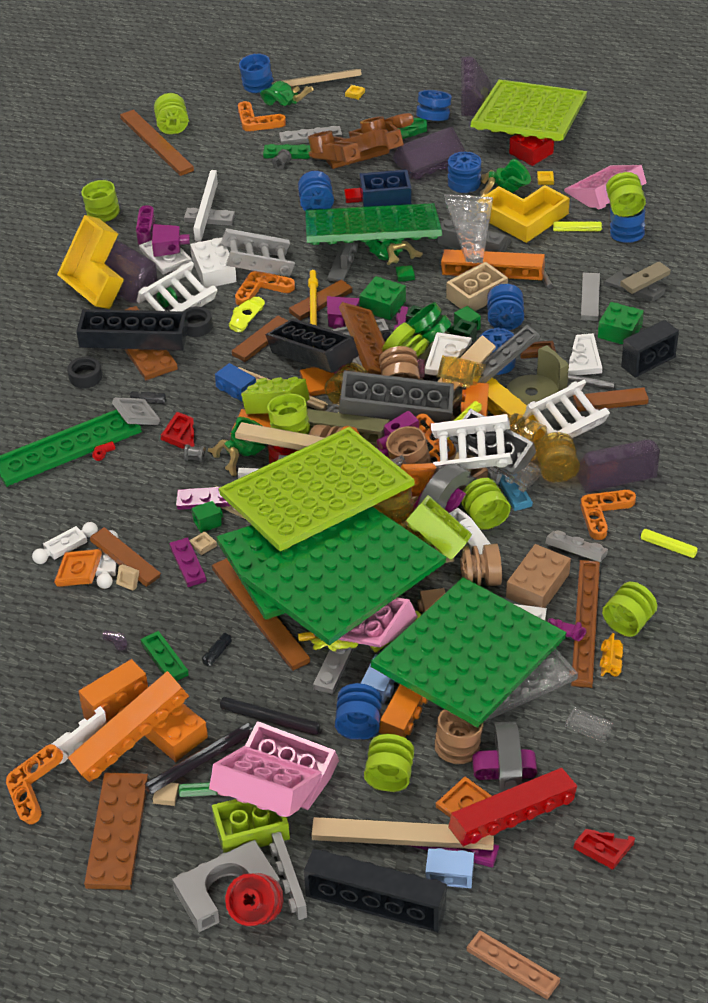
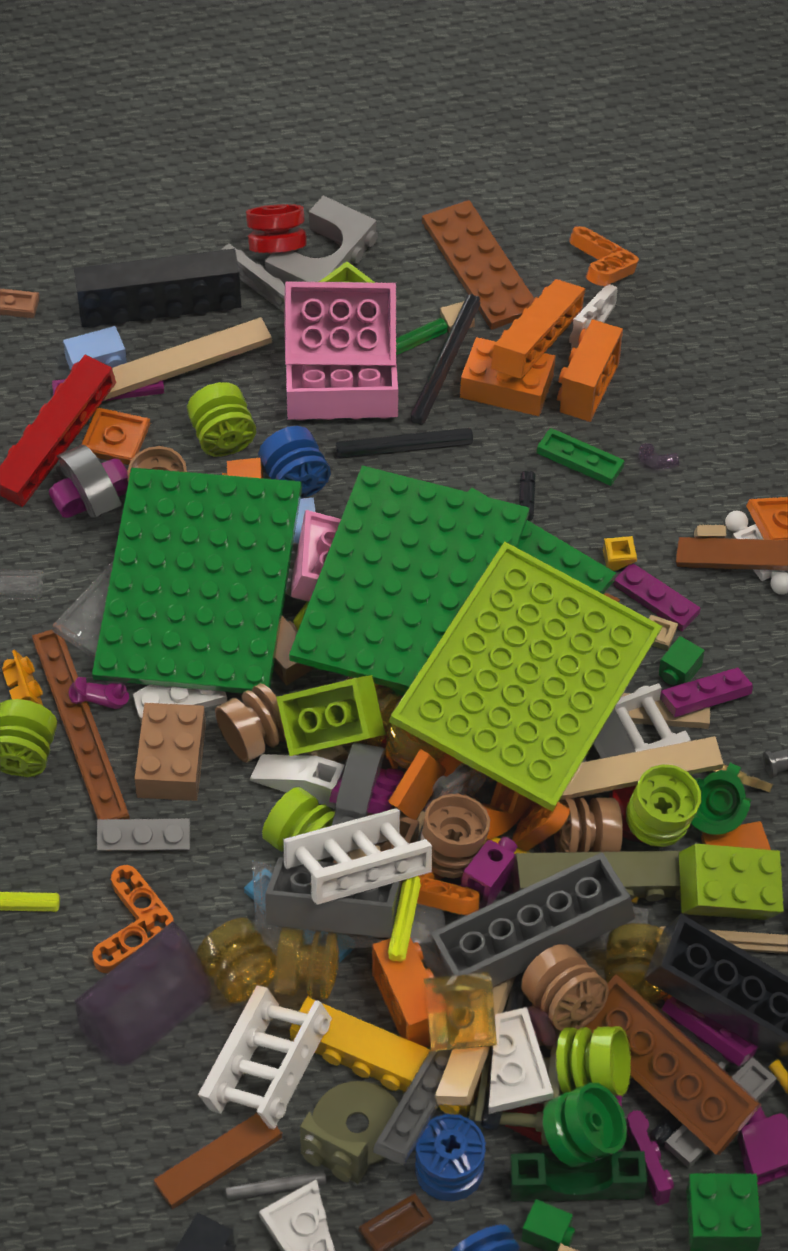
camera: 150 degrees right, 10 degrees up
(190, 589) = (619, 552): none -> yellow slope

